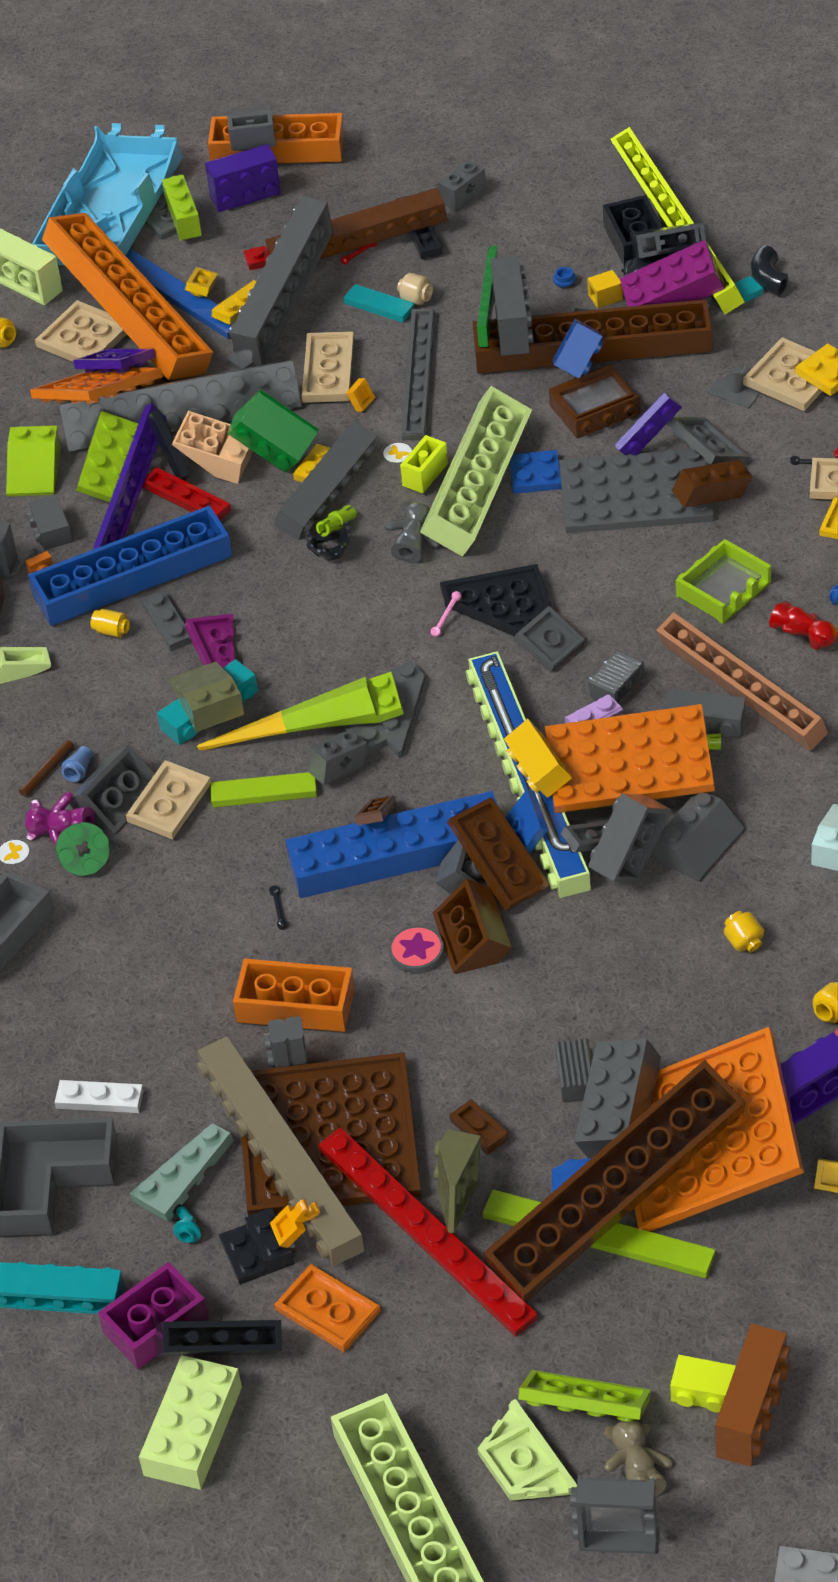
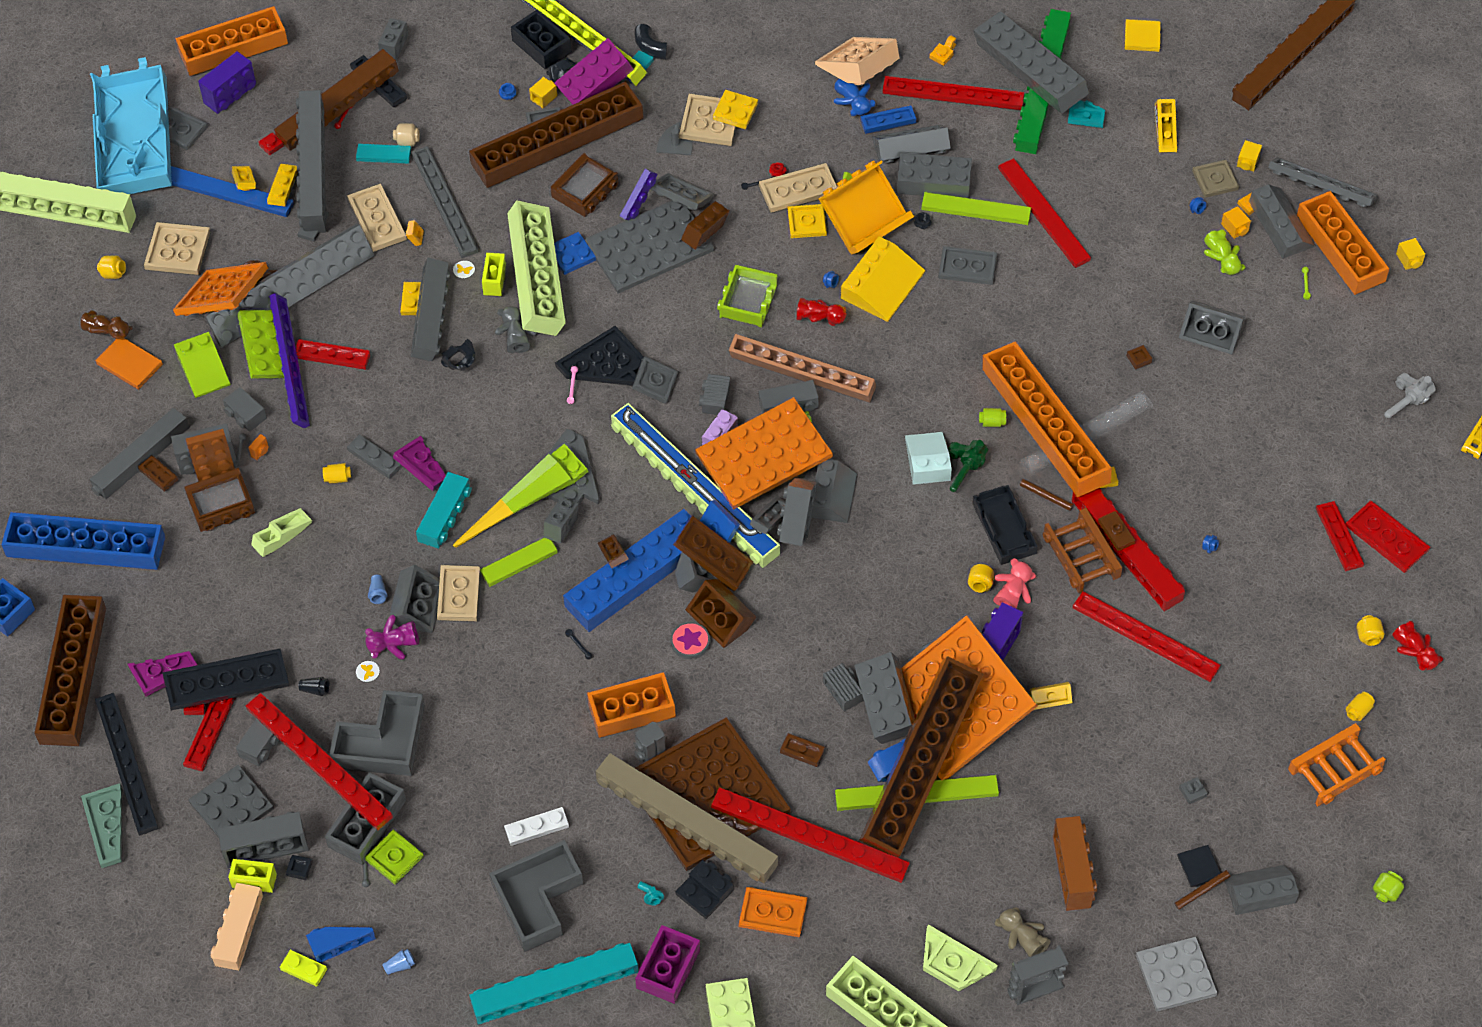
camera: 30 degrees left, 10 degrees up
(46, 768) = (354, 600): reddish brown bar -> none
(96, 842) = (432, 648): green plate -> none
(112, 359) = (219, 263): dark purple plate -> none
(127, 295) = (201, 209): orange brick -> none
(130, 565) = (326, 424): blue brick -> none
(165, 441) = (303, 321): black tile -> none
(173, 1180) = (624, 863): sand green wing -> none
(181, 207) = (194, 121): lime brick -> none
(207, 695) = (446, 506): olive slope -> none
(211, 447) = (336, 309): light nougat slope -> none
(218, 1337) = (723, 963): black brick -> none
(251, 127) = (215, 38): dark grey slope -> none
(272, 431) = (375, 286): green slope -> none
(289, 1222) = (726, 865): light orange plate -> none
(335, 520) = (454, 339): lime pin -> none
(456, 1173) = (812, 791): olive slope -> none
(486, 301) = (470, 127): green tile -> none
(511, 305) = (497, 132): dark grey brick -> none
(536, 759) = (706, 476): yellow brick -> none
(578, 348) = (559, 150): blue brick -> none
(584, 1394) = (971, 904): lime plate -> none
(666, 239) = (575, 43): black slope -> none
(700, 1382) = (1037, 867): neon yellow brick -> none
(744, 931) = (898, 549): yellow head -> none

